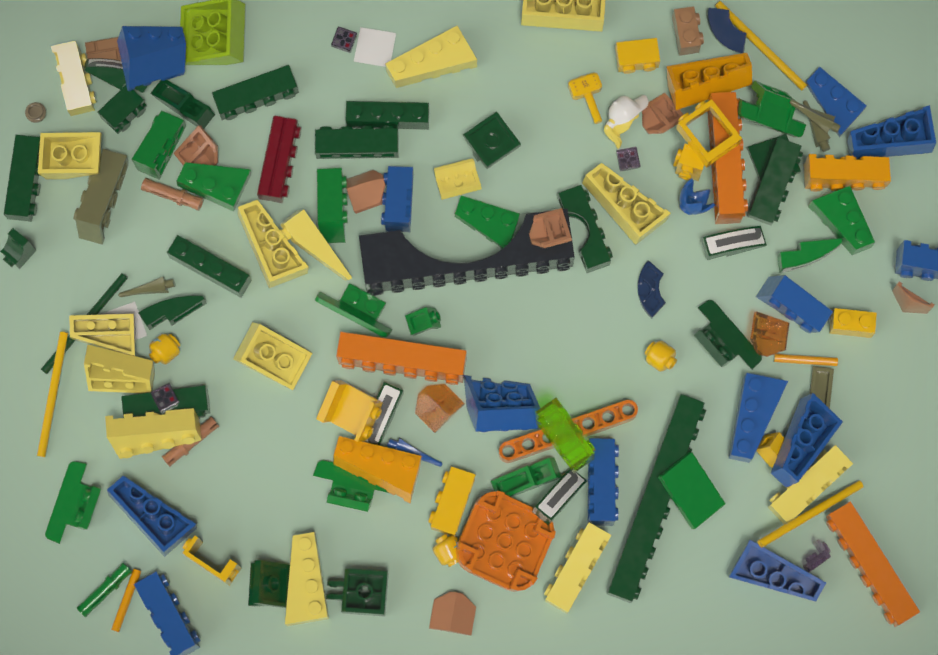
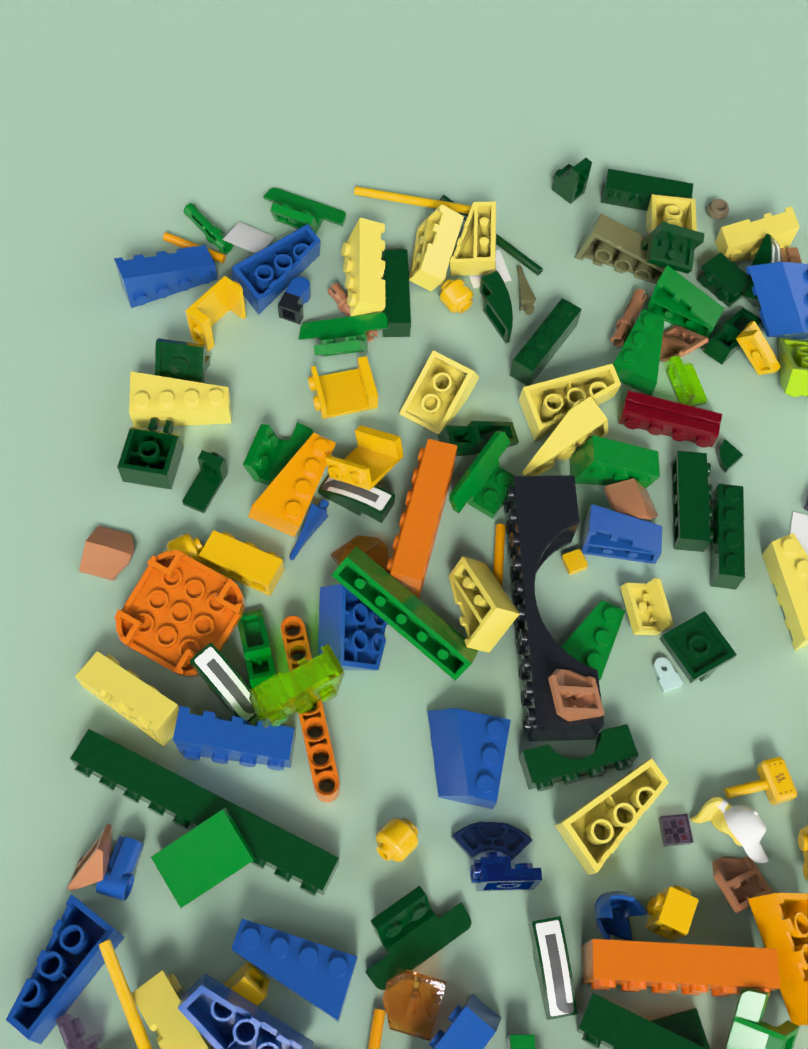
camera: 90 degrees right, 15 degrees down
(113, 548) = (248, 238): none -> white sticker
(115, 155) = (672, 246): none -> dark green bracket
(164, 397) = (400, 283): tile -> none
(181, 496) = (292, 301): none -> leg
(201, 82) = (758, 350): none -> yellow panel
(221, 445) = (343, 334): none -> green plate
(238, 145) = (685, 383): none -> clear neon green panel
(255, 92) = (749, 403): dark green brick -> none
(274, 439) = (344, 391): none -> yellow panel
(307, 111) = (728, 455): none -> dark green tile
(313, 320) = (474, 436): none -> dark green slope
(382, 544) = (207, 482): none -> dark green bracket
(419, 236) = (574, 561): none -> yellow piece
(423, 320) = (468, 546): green bracket -> none
(424, 296) = (499, 552): none -> light orange bar
(472, 304) = (482, 602): none -> light yellow wedge
(491, 362) = (405, 613): none -> green brick
(512, 162) = (667, 679): none -> light aqua piece
(592, 309) = (468, 755): none -> blue wedge
(678, 282) = (495, 874): none -> clear blue plate
(704, 568) = (94, 864): none -> nougat slope
(710, 551) = (119, 873): none -> blue piece
(719, 151) = (690, 950): yellow window -> none

